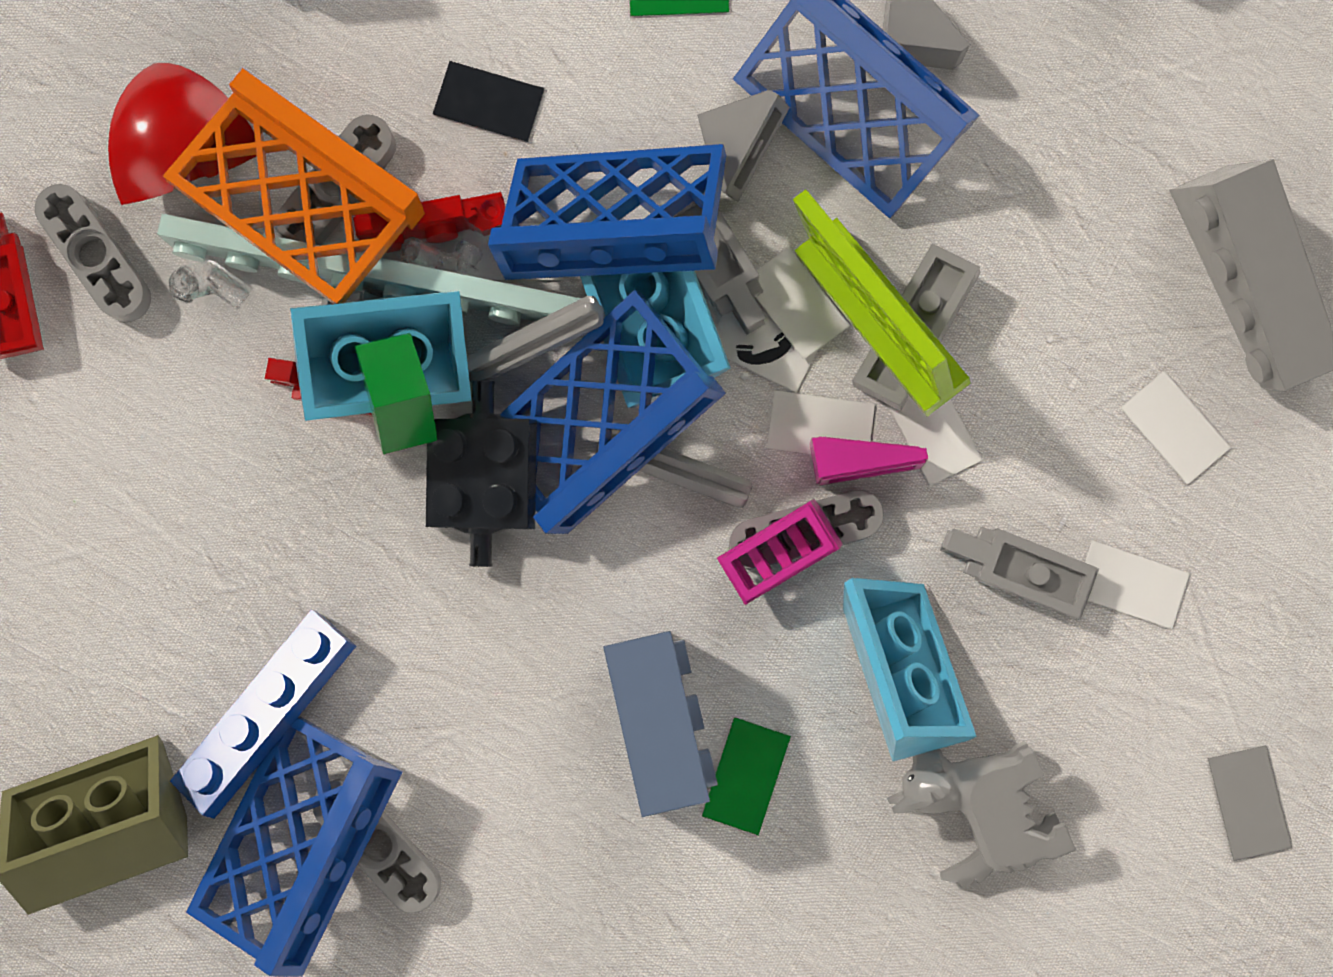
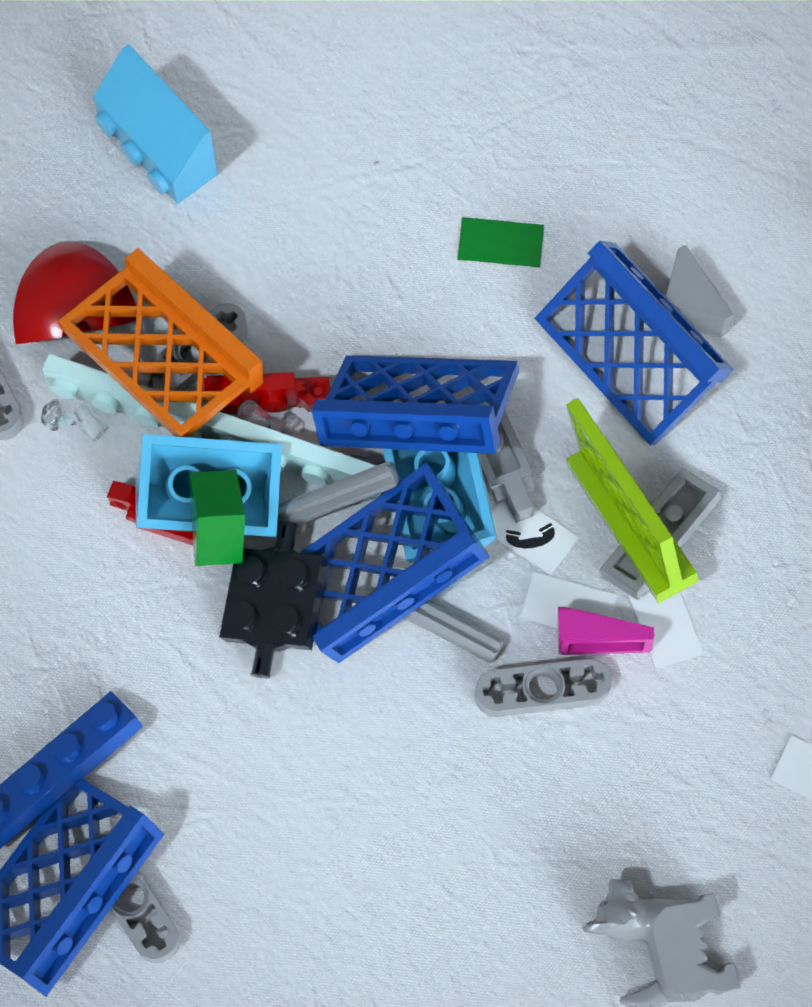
camera: 10 degrees right, 15 degrees down
(488, 101) = (329, 309): black sticker -> none
(659, 723) = (393, 819): sand blue brick -> none
(741, 579) = (510, 681): dark pink slope -> none
(746, 133) = (539, 359): light grey slope -> none
(746, 776) = (461, 891): green sticker -> none
(798, 304) = (563, 504): white sticker -> none
(906, 666) = (612, 808): medium azure slope -> none
(1024, 569) = (727, 746): light grey hinge -> none

